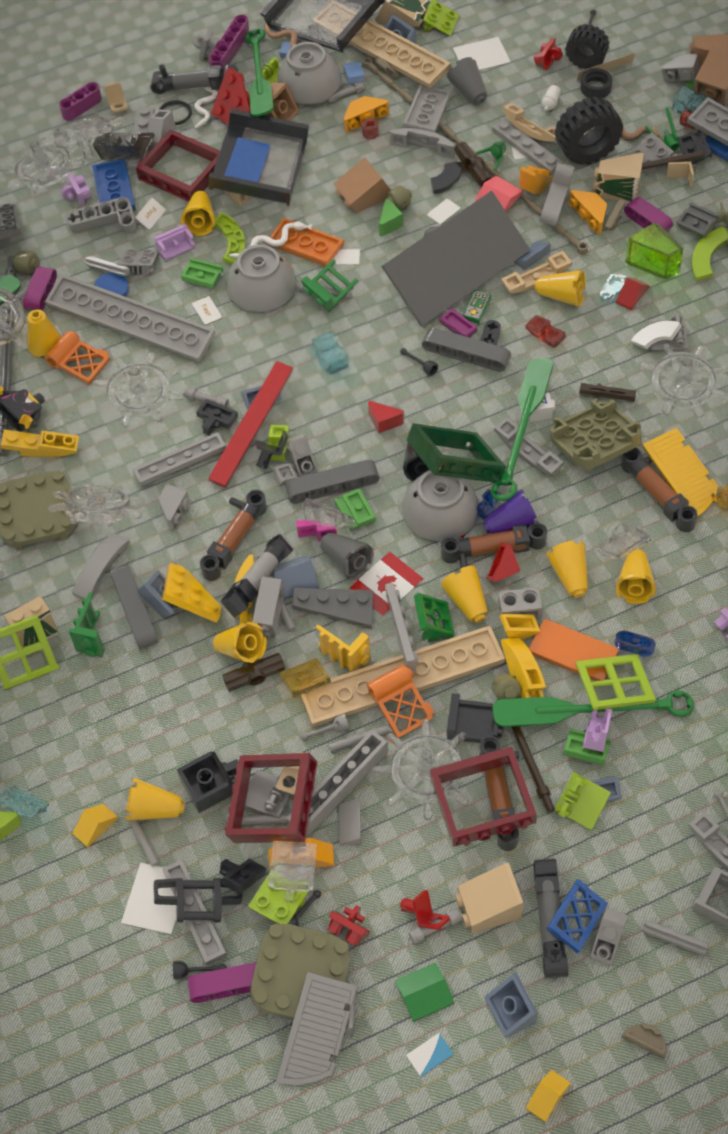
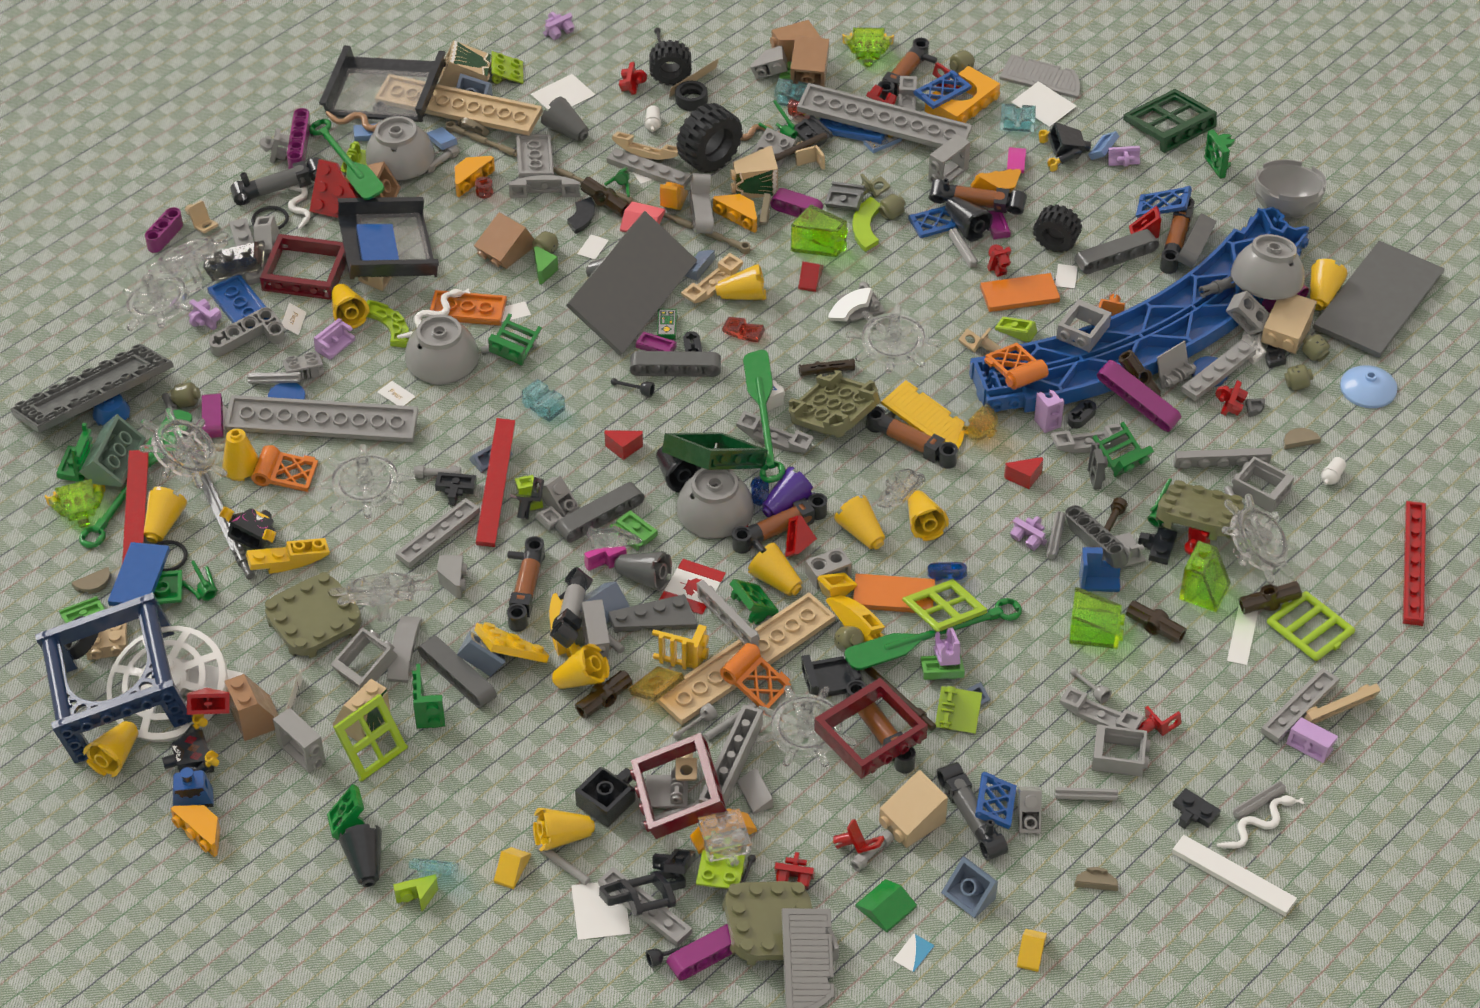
camera: 25 degrees left, 10 degrees down
(47, 558) = (353, 649): none -> light grey window
(202, 273) = (376, 360): bright green plate -> none
(612, 285) = (790, 273): clear light blue plate -> none

